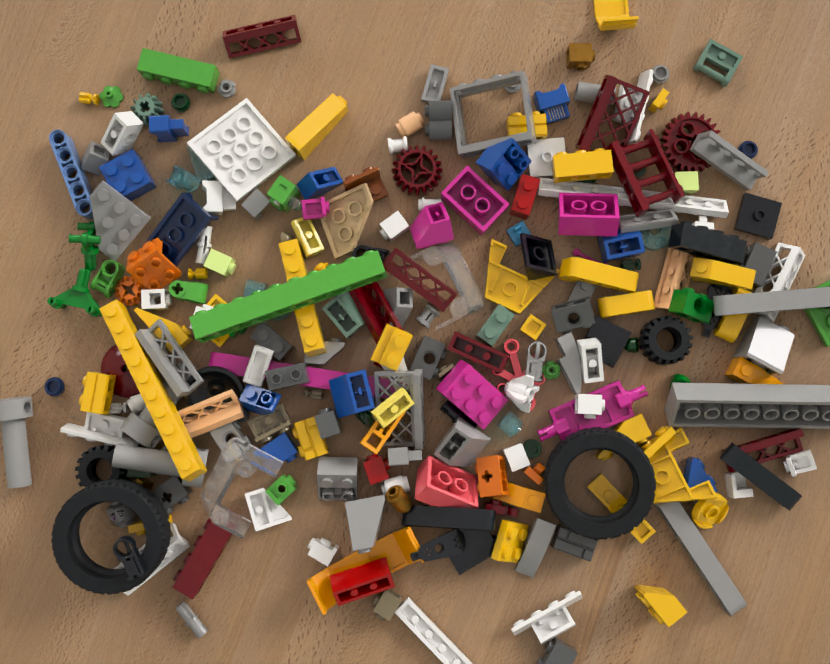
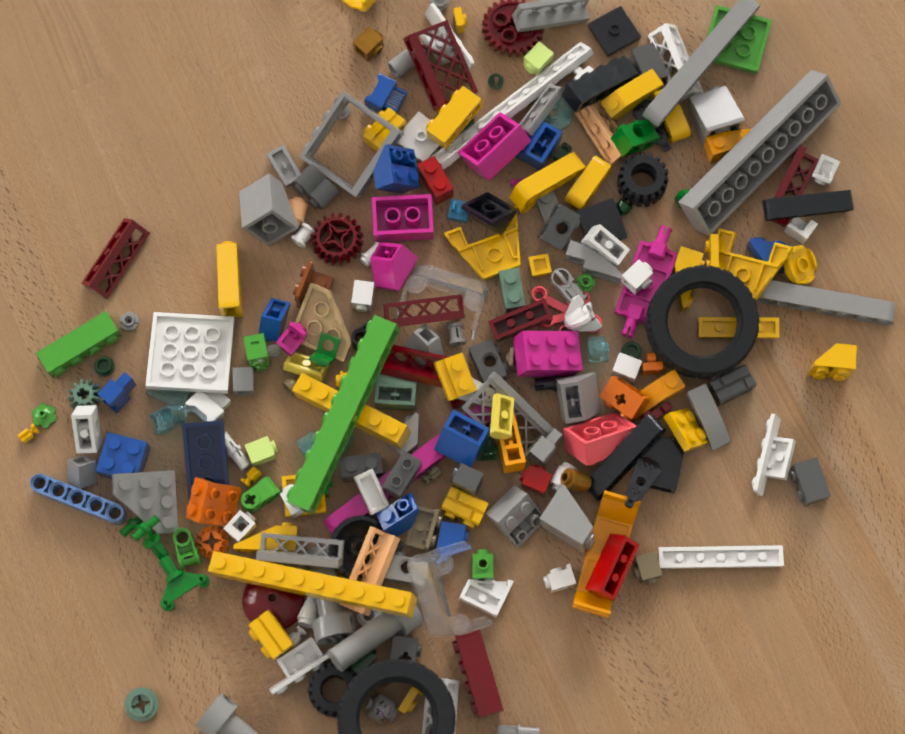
camera: 45 degrees left, 10 degrees down
(54, 386) = (230, 671): dark blue plate -> none
(132, 559) = (431, 711): black piece -> none
(322, 241) = (323, 357): none -> green bracket
(389, 103) = (266, 210): none -> light grey slope
(633, 186) = (499, 95): dark red fence -> none

